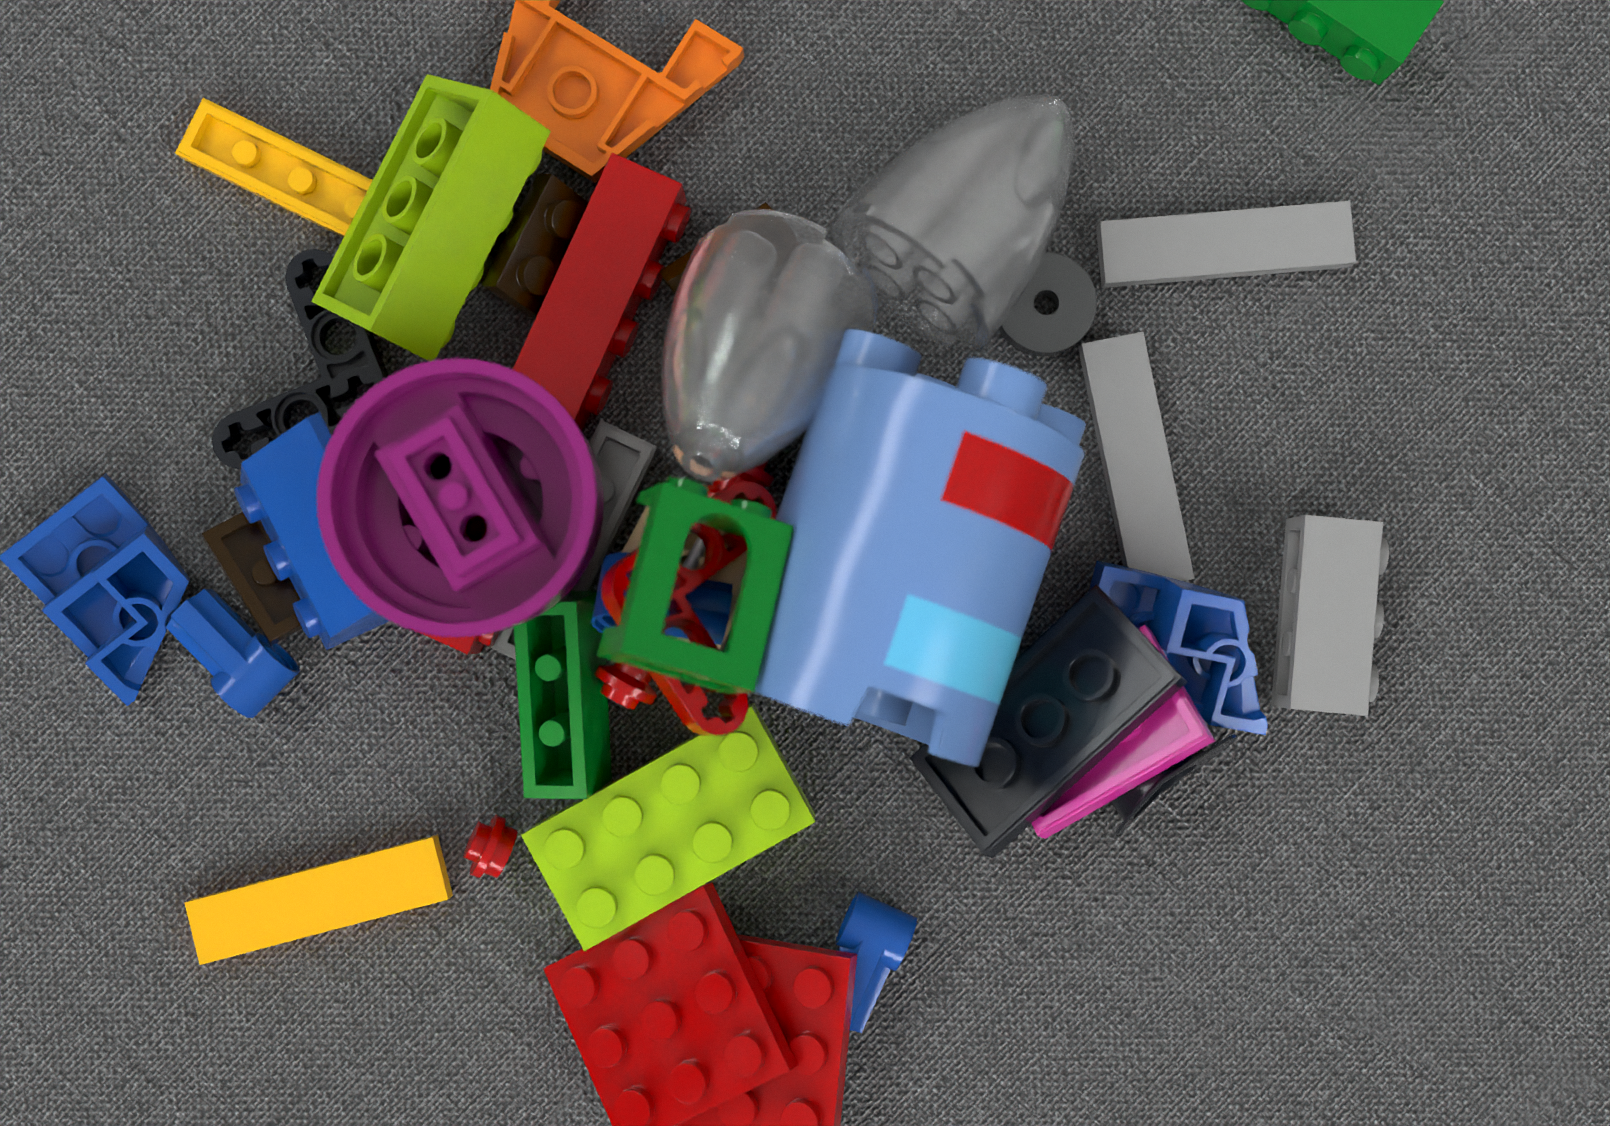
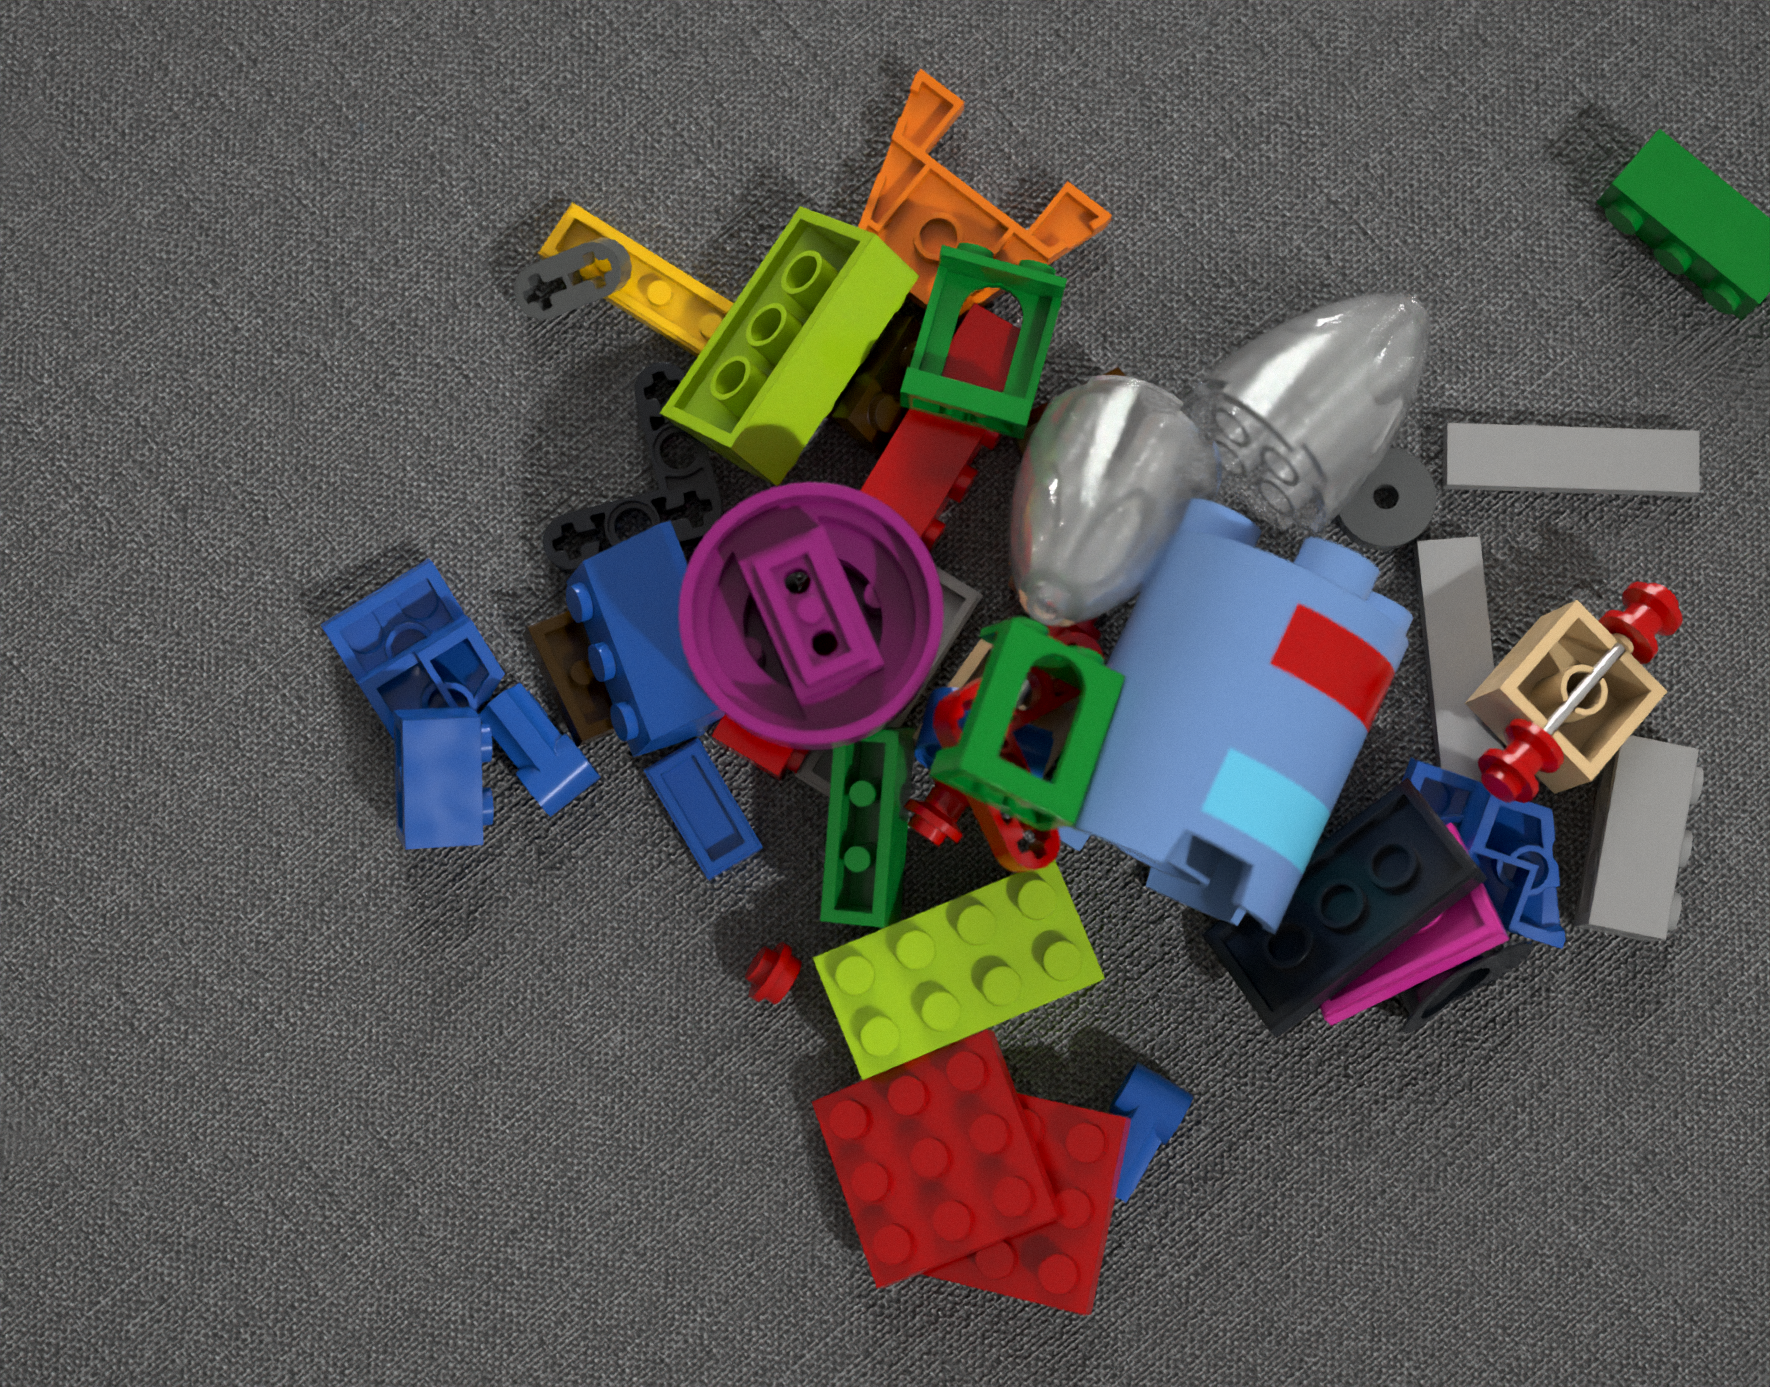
camera: 10 degrees right, 5 degrees down
(131, 695) = (441, 777): none -> blue brick
(201, 162) = (567, 266): none -> dark grey beam
(318, 899) = (592, 1007): yellow tile -> none
(406, 690) = (703, 809): none -> blue tile
(591, 126) = (958, 276): none -> green panel
(1252, 480) = (1572, 693): none -> tan brick

